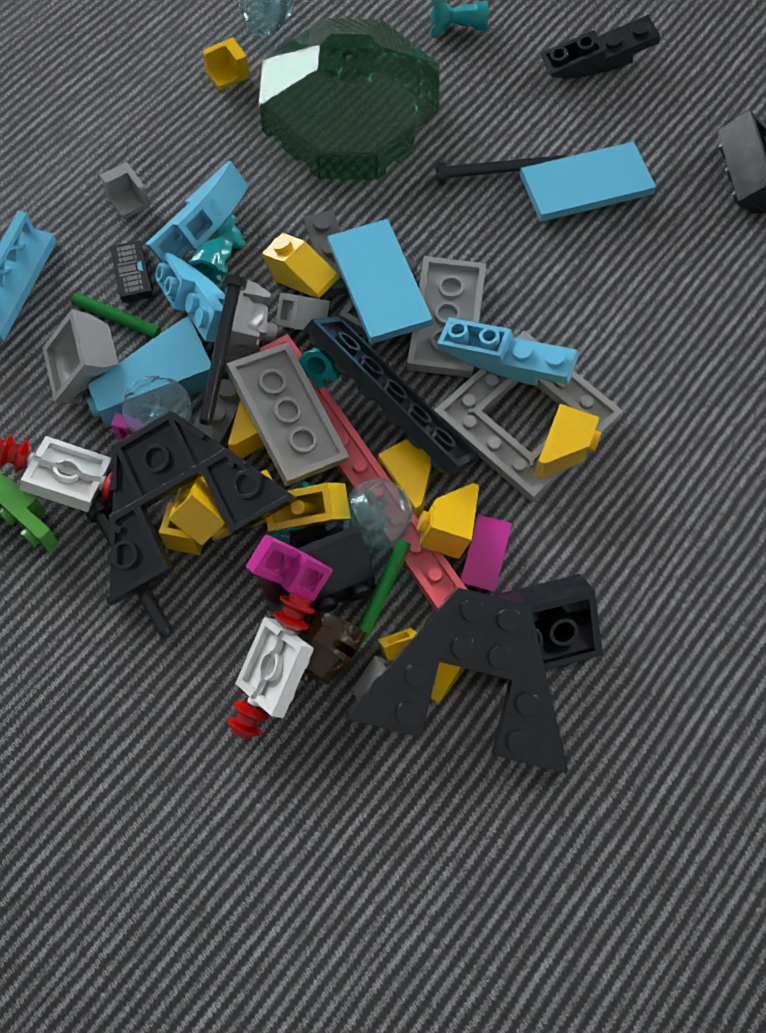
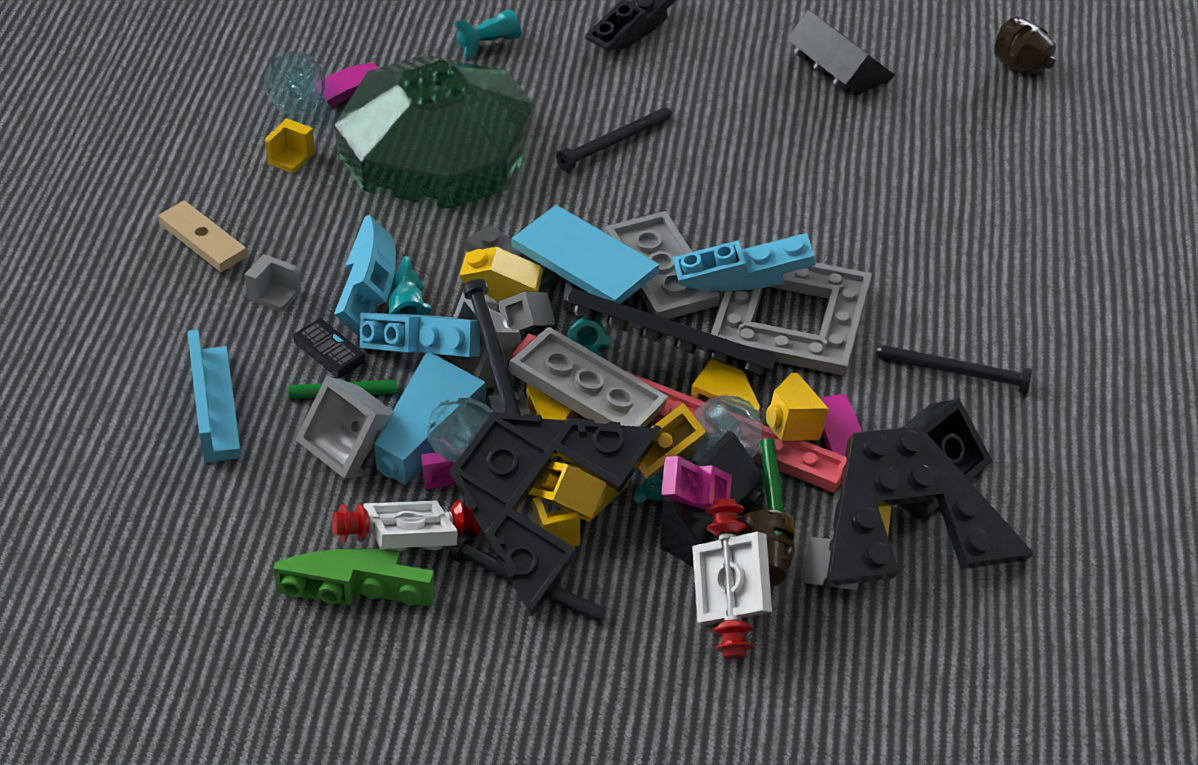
camera: 30 degrees left, 20 degrees down
(104, 122) = (202, 236): none -> tan tile
(304, 18) = (345, 82): none -> dark pink slope
(395, 642) = (819, 525): yellow plate -> none
(568, 441) = (846, 307): yellow slope -> none
(587, 181) = (702, 118): medium azure tile -> none
(686, 585) = (957, 366): none -> black bar

